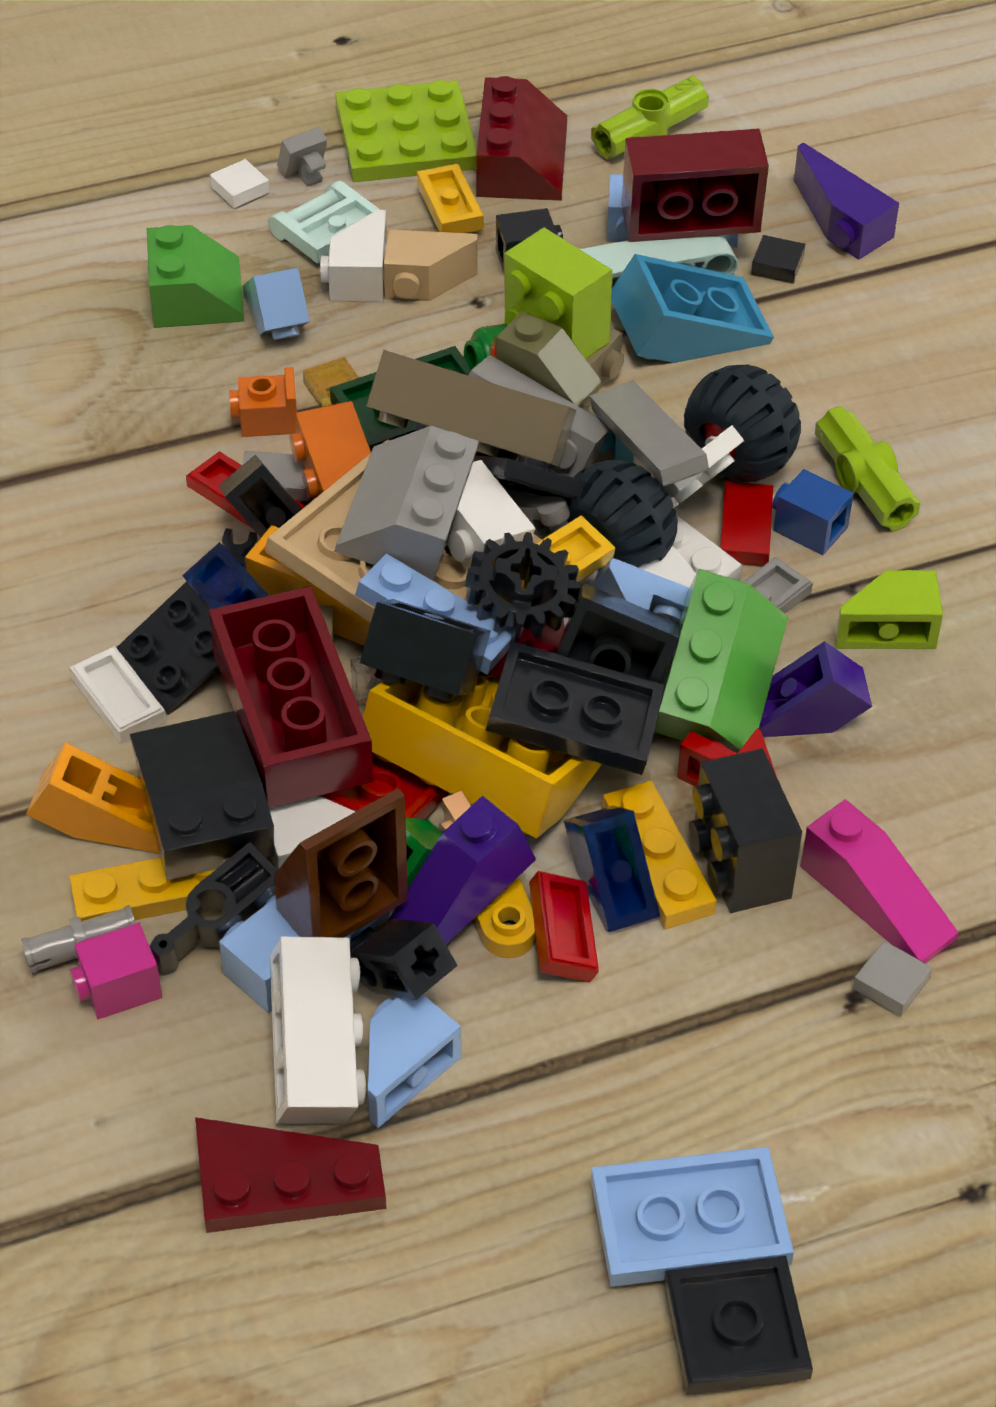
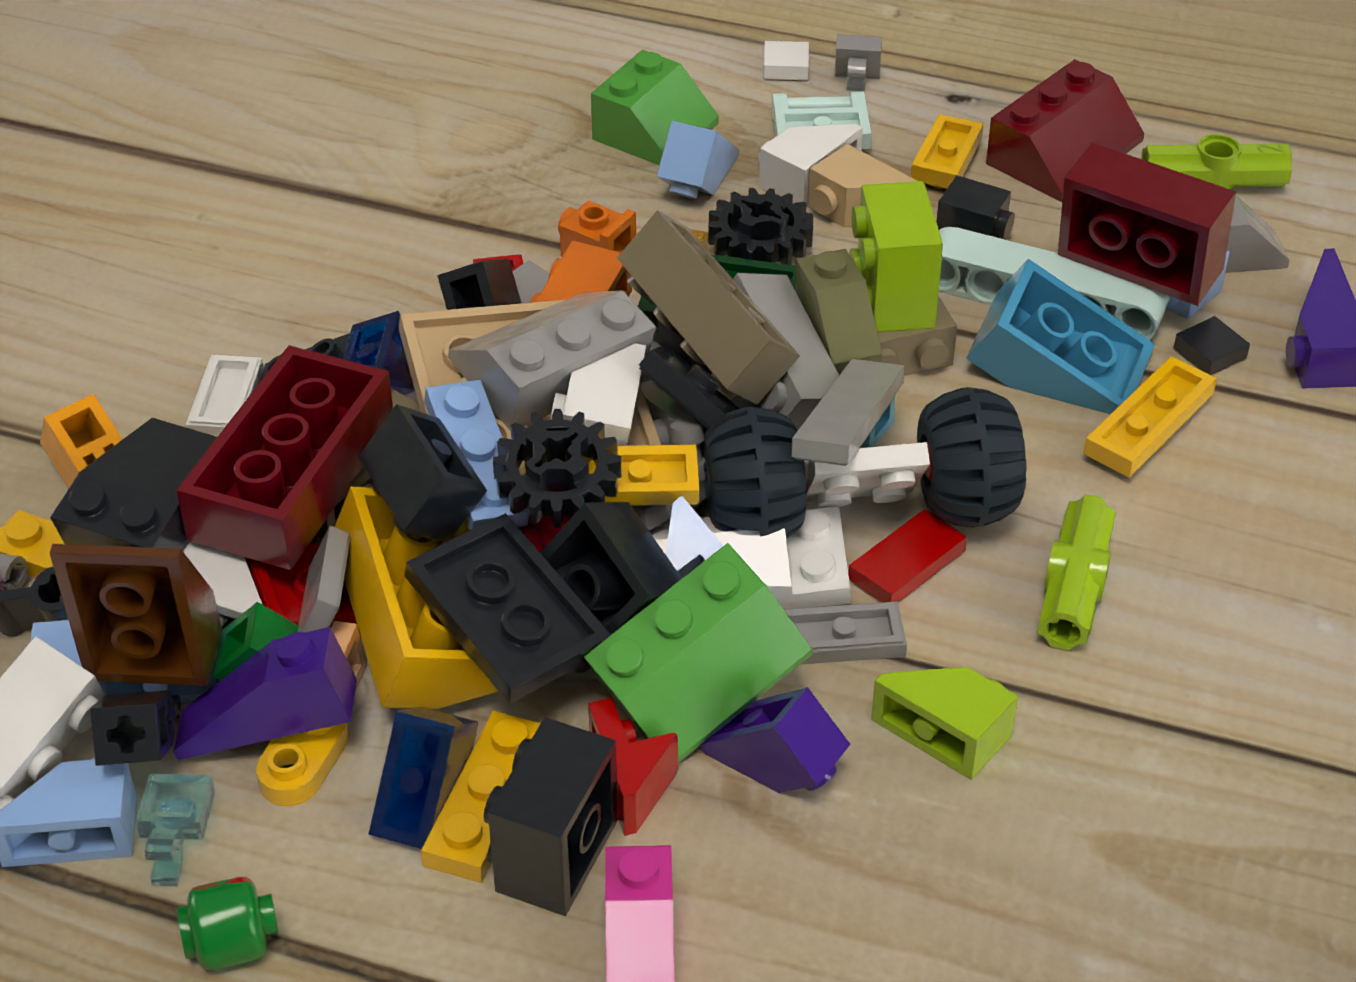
camera: 40 degrees right, 5 degrees down
(384, 326) = (761, 227): none -> black gear
(405, 129) = (971, 75): lime plate -> none
(427, 785) = (325, 581): none -> light grey tile
(477, 1007) = (171, 811): none -> clear light blue plate
(563, 926) = (325, 801): red tile -> none
(598, 1049) = (226, 923): none -> green head
(797, 332) = (1149, 416): none -> yellow plate
(812, 511) = (975, 580): blue brick -> none

